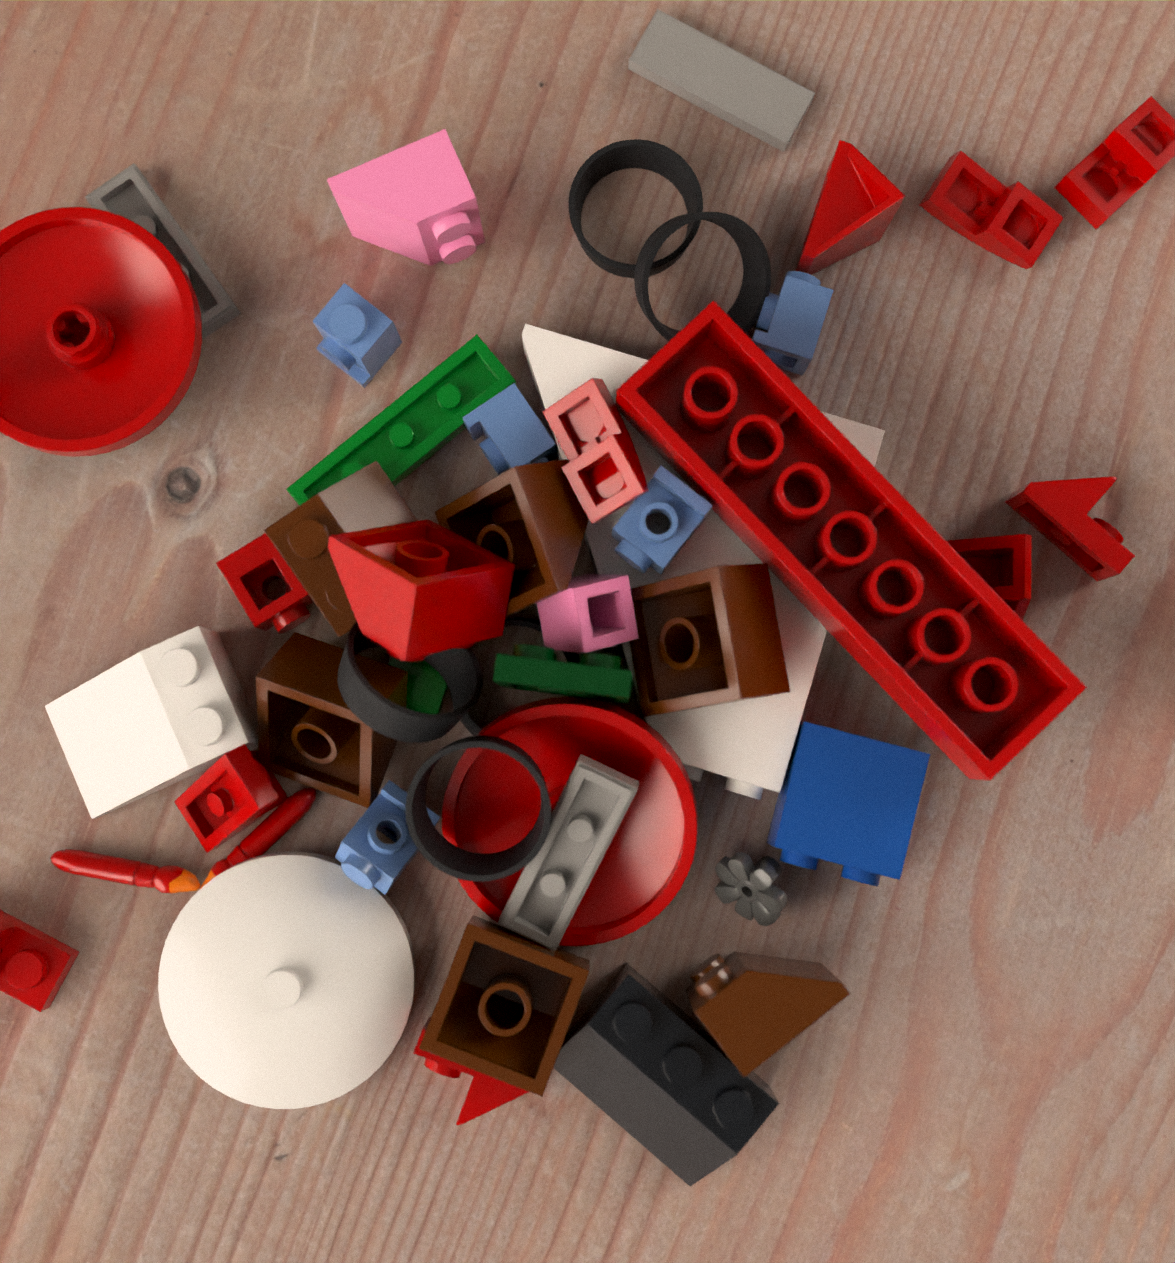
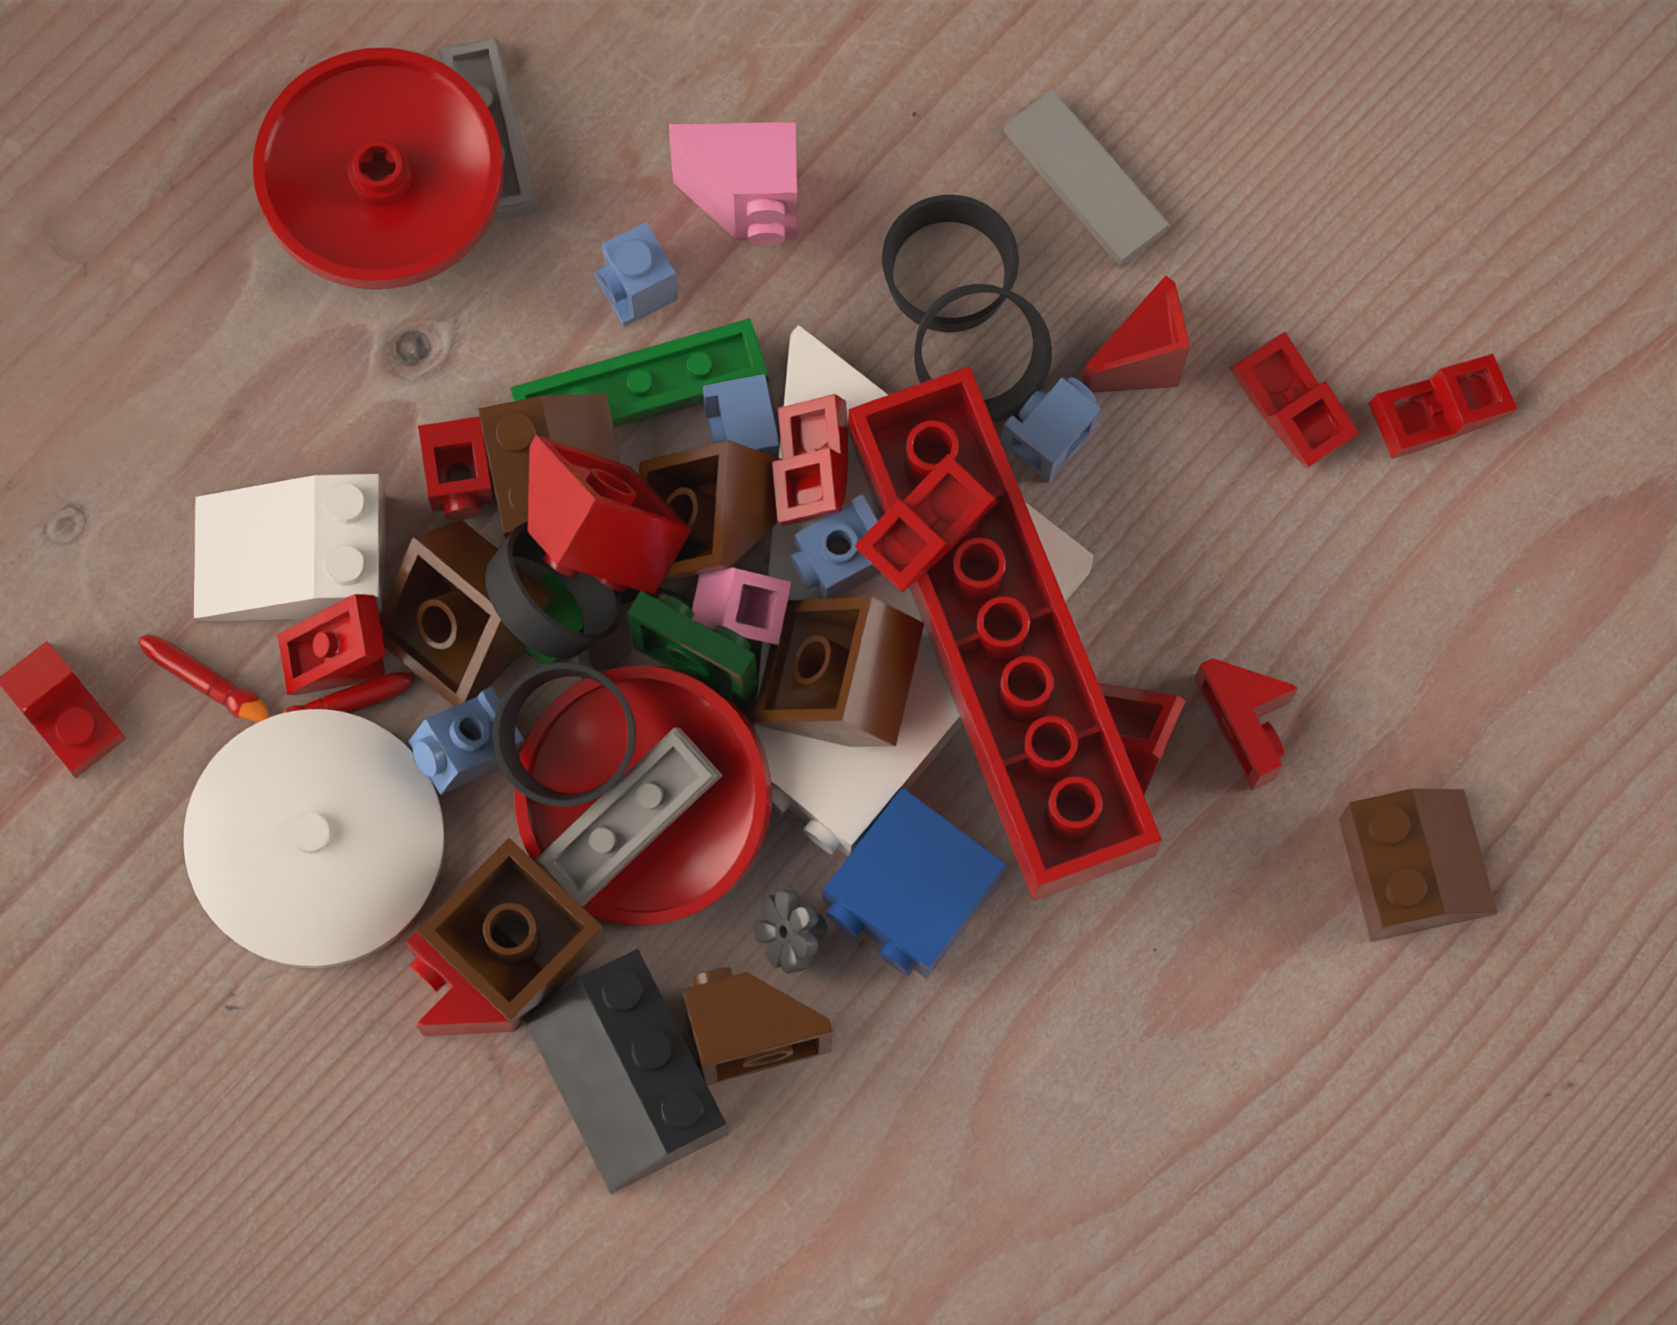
camera: 20 degrees right, 10 degrees down
(740, 474) = (925, 524): none -> red slope

